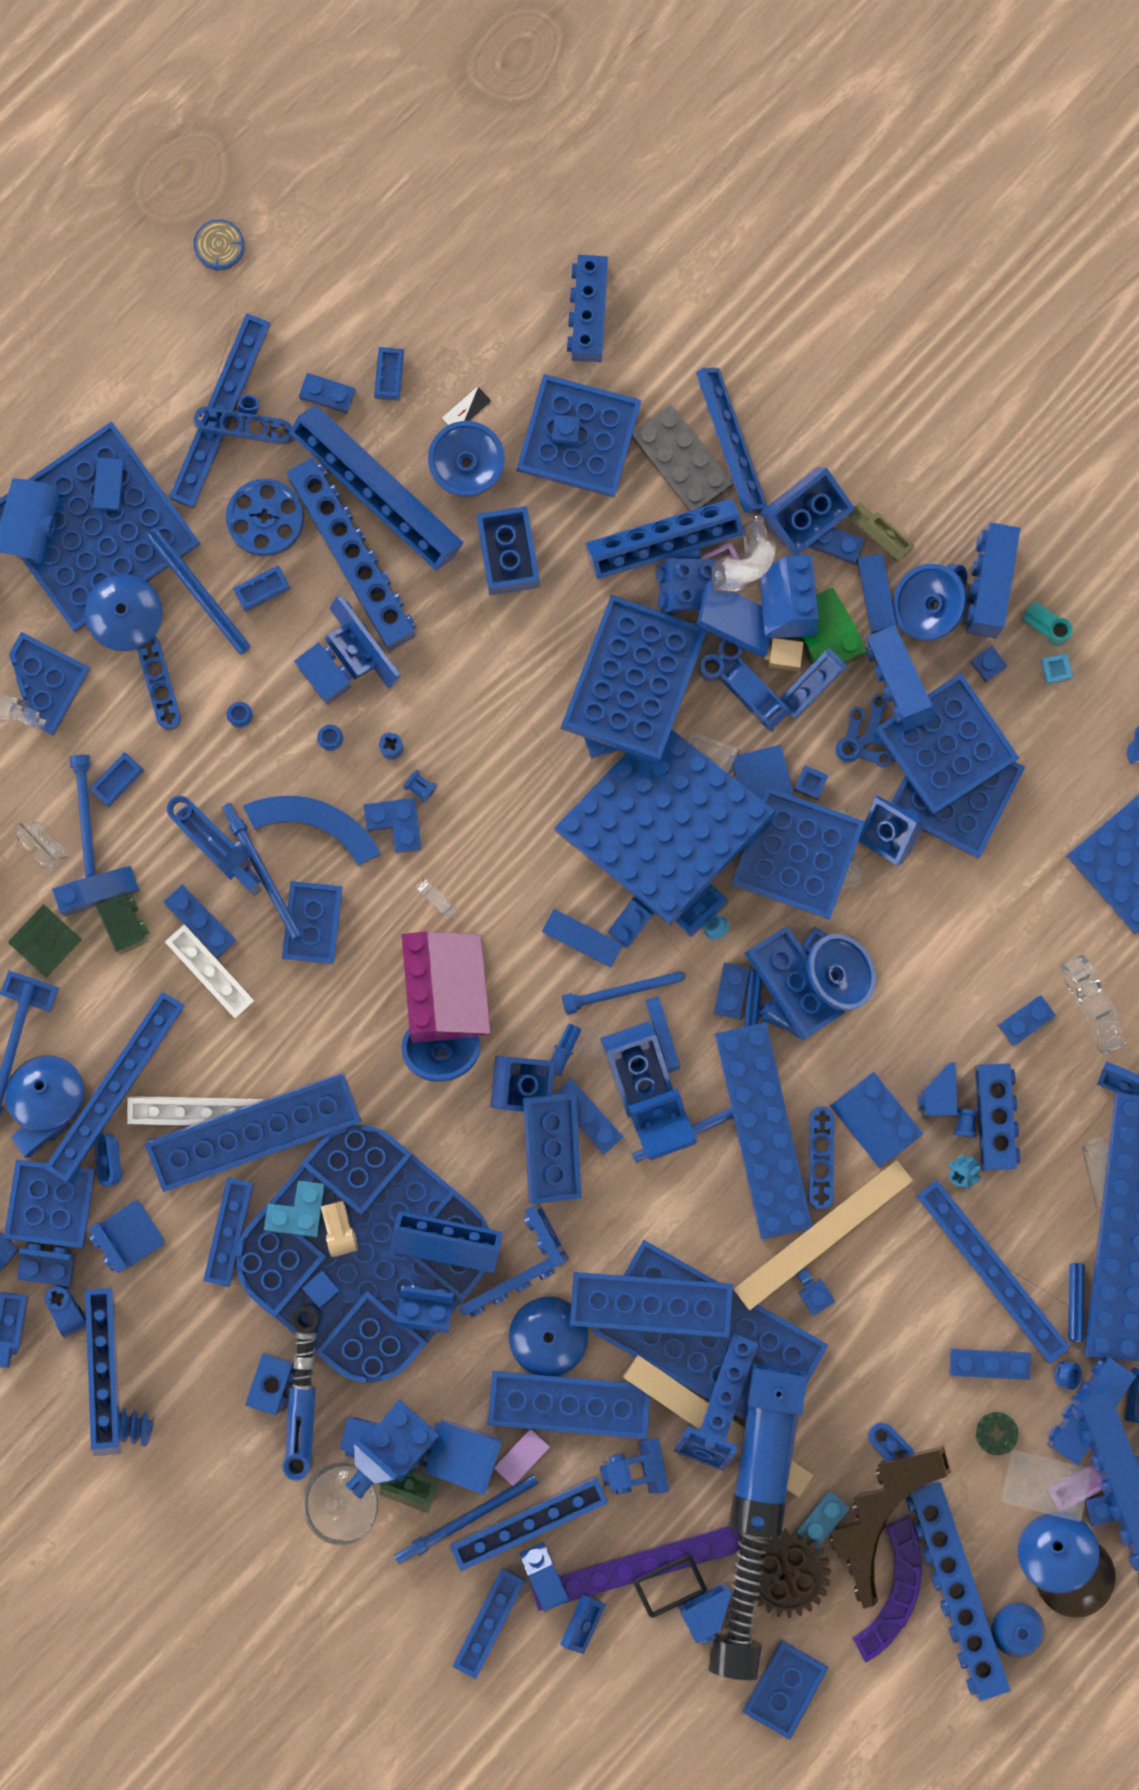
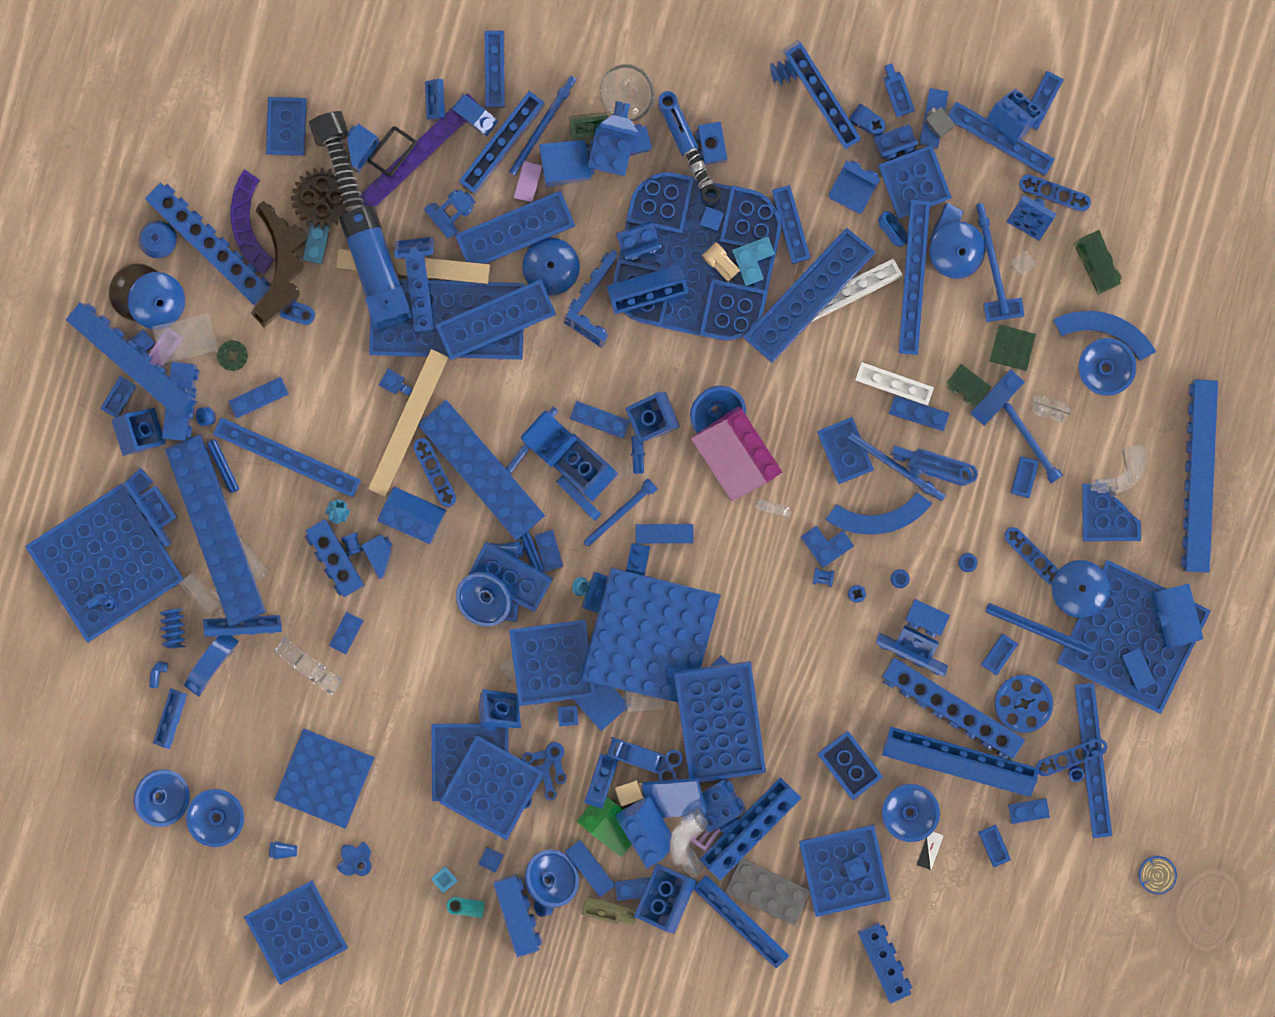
camera: 155 degrees right, 5 degrees up
(552, 1148) = (611, 386): blue plate -> none
(900, 678) = (545, 815): blue brick -> none

